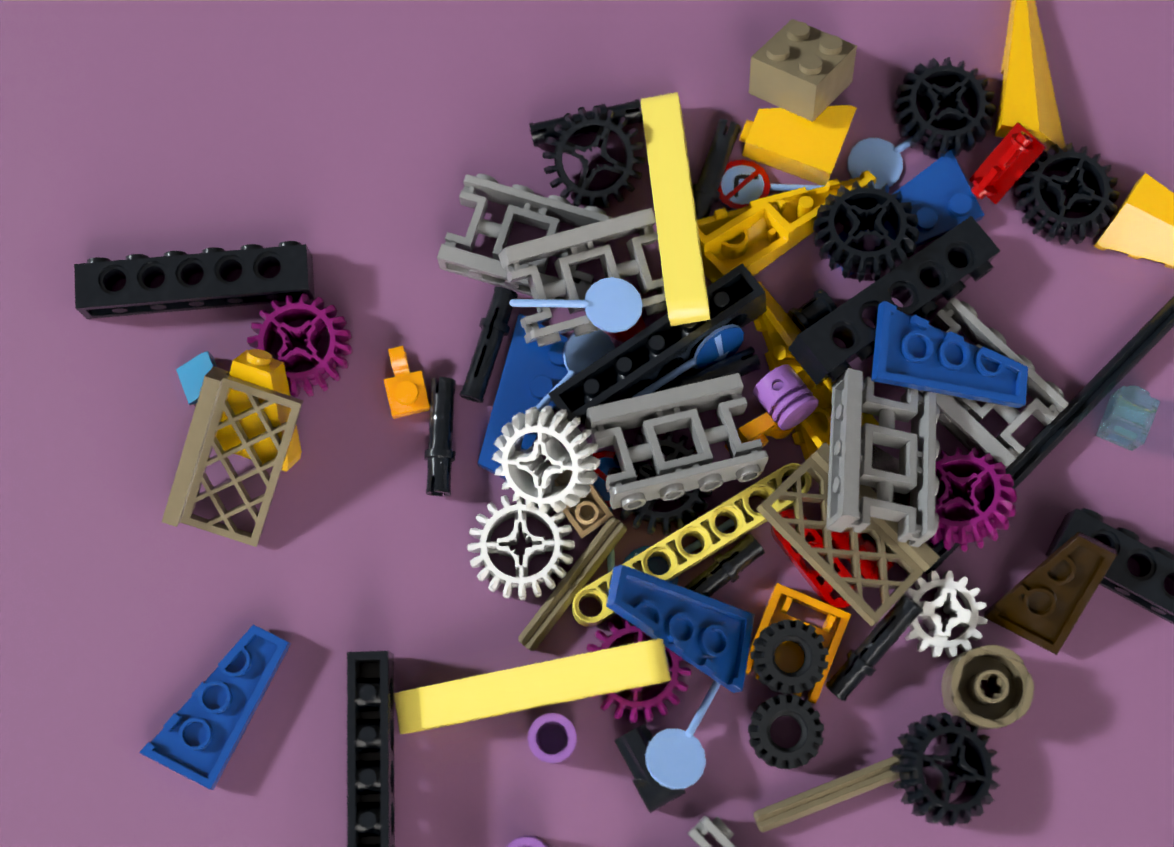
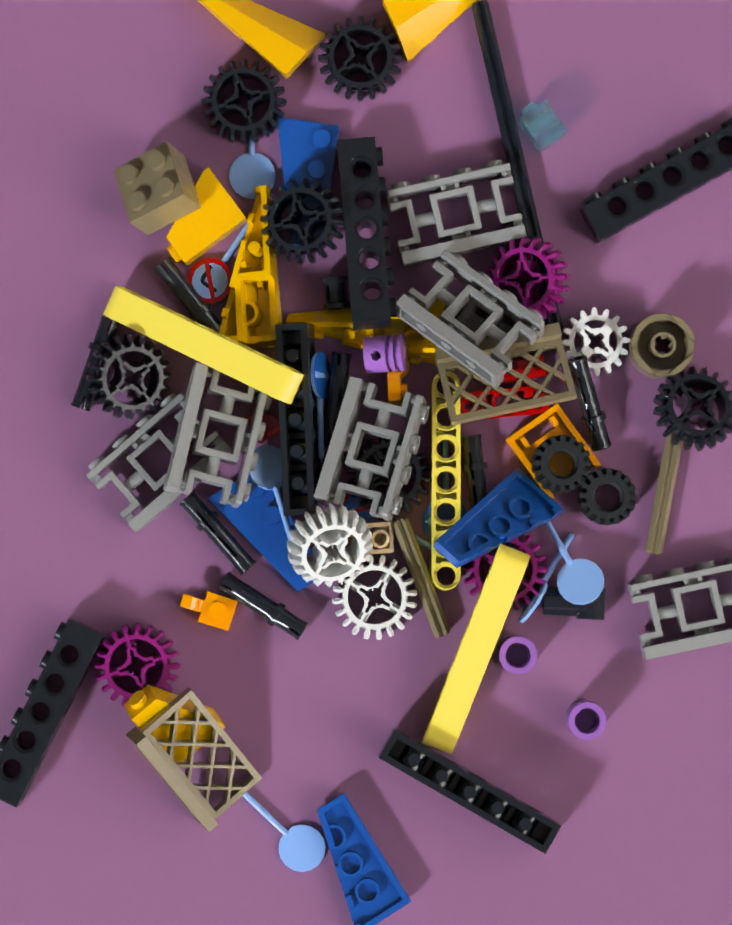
camera: 60 degrees left, 10 degrees up
(193, 374) = (116, 749): dark azure slope -> none
(206, 632) = (300, 846): none -> light blue piece
(608, 304) = (248, 435): light blue piece -> none
(625, 720) = (535, 599): none -> light blue piece
(930, 360) = (425, 238): blue wing -> none
(1006, 164) = (314, 89): red hinge -> none
(1055, 593) = (628, 260): dark brown wing -> none

